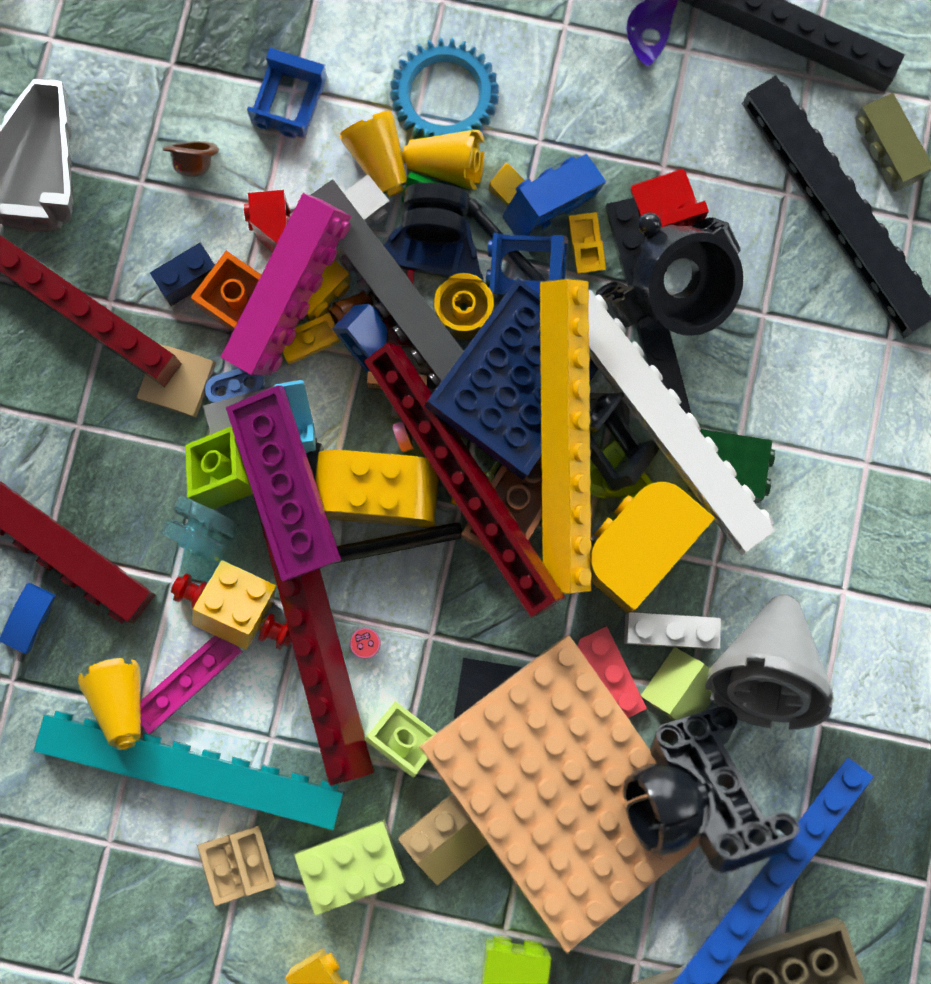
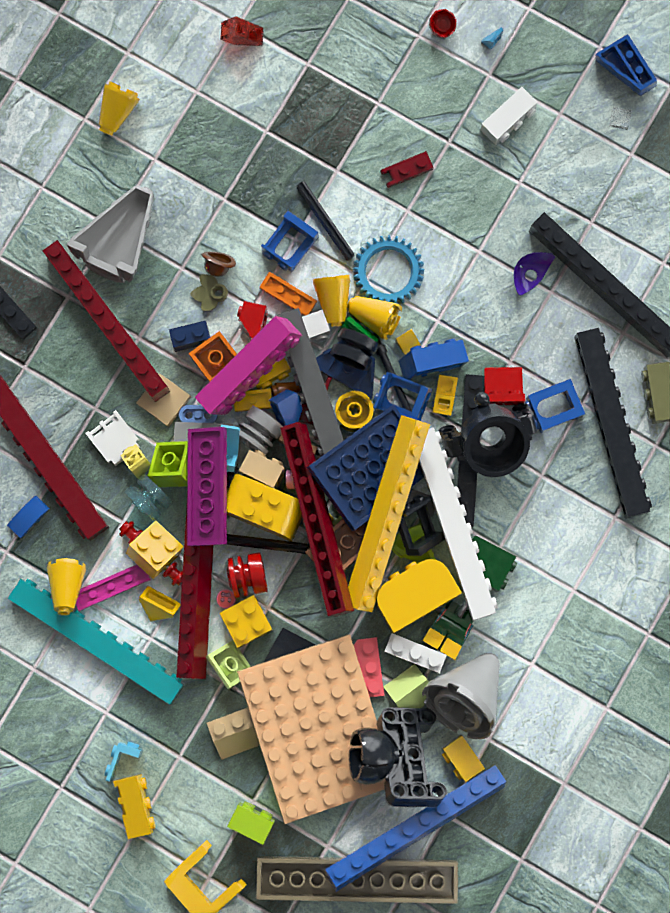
camera: 25 degrees right, 0 degrees up
(121, 461) = (113, 438): none -> white plate
(163, 481) = (135, 460): none -> light yellow slope
(189, 205) = (207, 292): none -> olive plate
(236, 865) = (105, 707): tan slope -> none
(266, 685) = (158, 605): none -> yellow slope
(295, 916) = (130, 749): none -> medium azure bracket
(308, 168) = (288, 294): none -> orange plate
(329, 49) = (325, 220): none -> black axle
(334, 374) = (259, 430): none -> light grey wheel
(349, 867) = (172, 730): yellowish green brick -> none
(356, 431) = (261, 469): none -> tan brick
(385, 597) = (247, 575): none -> red wheel
(406, 666) = (246, 621): none -> yellow brick
(707, 570) = (450, 624): none -> dark green hips
(774, 192) = (574, 413): none -> blue panel
(794, 763) = (463, 759): none -> yellow brick

